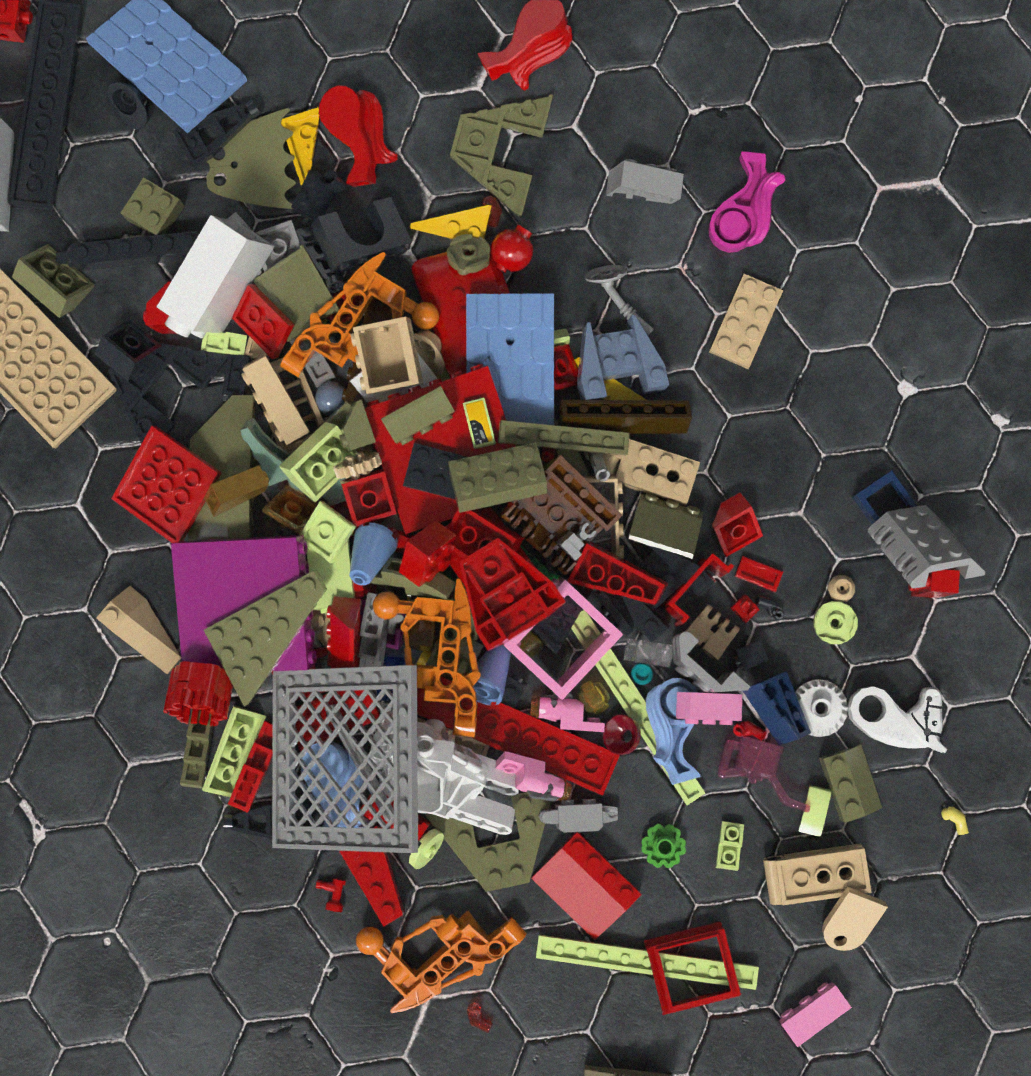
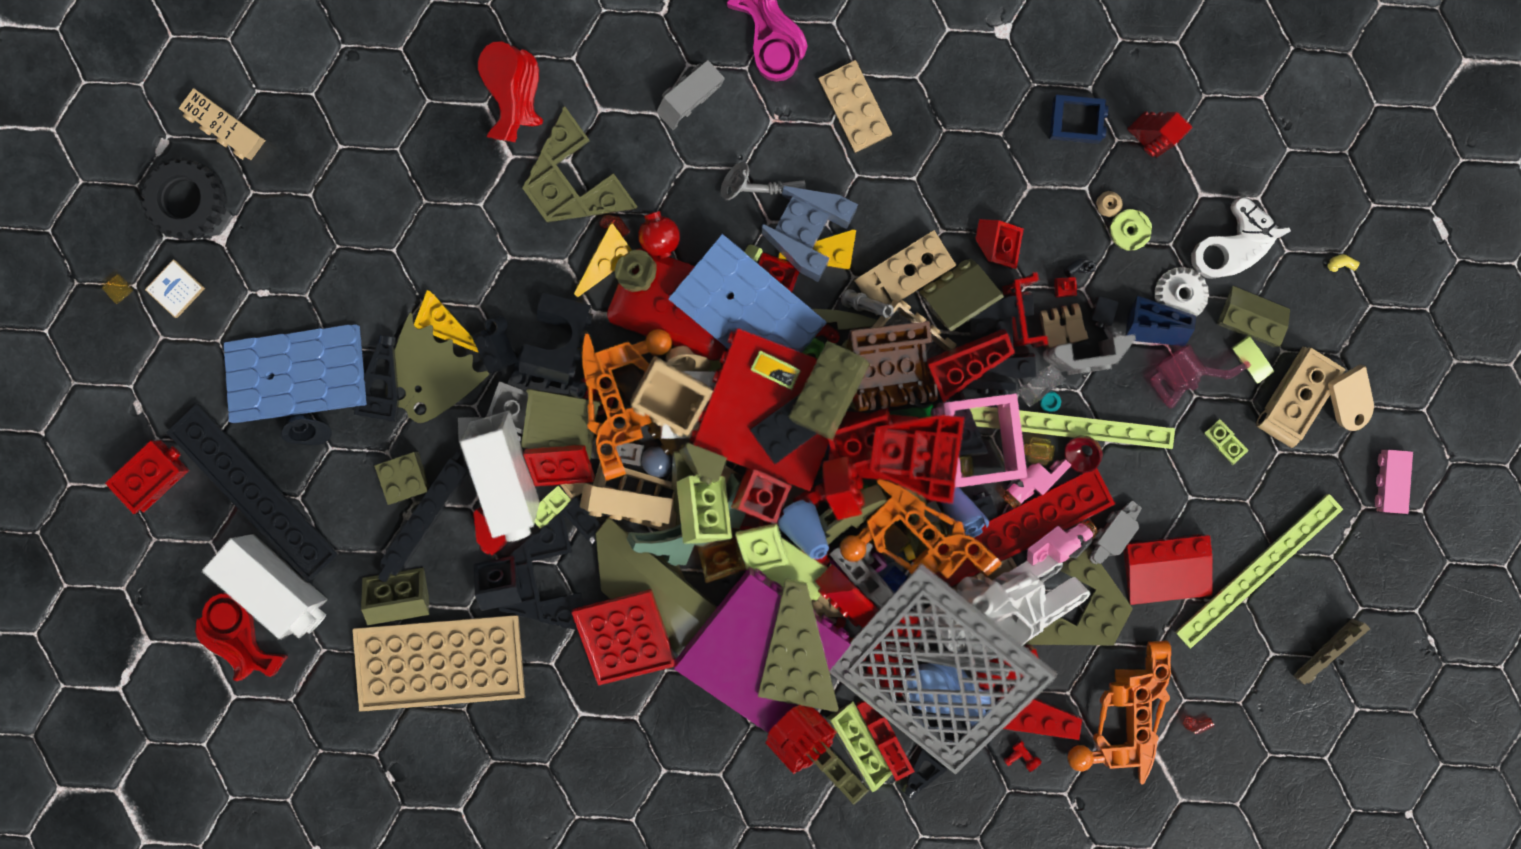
camera: 60 degrees left, 5 degrees up
(136, 624) = (709, 741): tan wedge -> none
(236, 490) = (675, 588): pearl gold slope -> none
(357, 465) = (730, 493): tan gear -> none
(359, 124) = (465, 270): red animal -> none
(418, 416) = (735, 410): olive slope -> none
(430, 844) = (1047, 656): yellowish green plate -> none
(563, 437) = (836, 316): olive plate -> none
(573, 543) = (919, 374): light grey piece -> none
(627, 415) = (854, 257): dark brown brick -> none
(663, 845) = (1186, 489): bright green plant -> none
(668, 730) = (1099, 404): light blue animal -> none
(684, 937) = (1264, 529): red piece -> none
(709, 708) = (1112, 381): bright pink brick -> none
(747, 729) = (1154, 358): red arm -> none
(758, 574) = (1048, 255): red tile -> none
(921, 544) = (1132, 121): light grey slope -> none

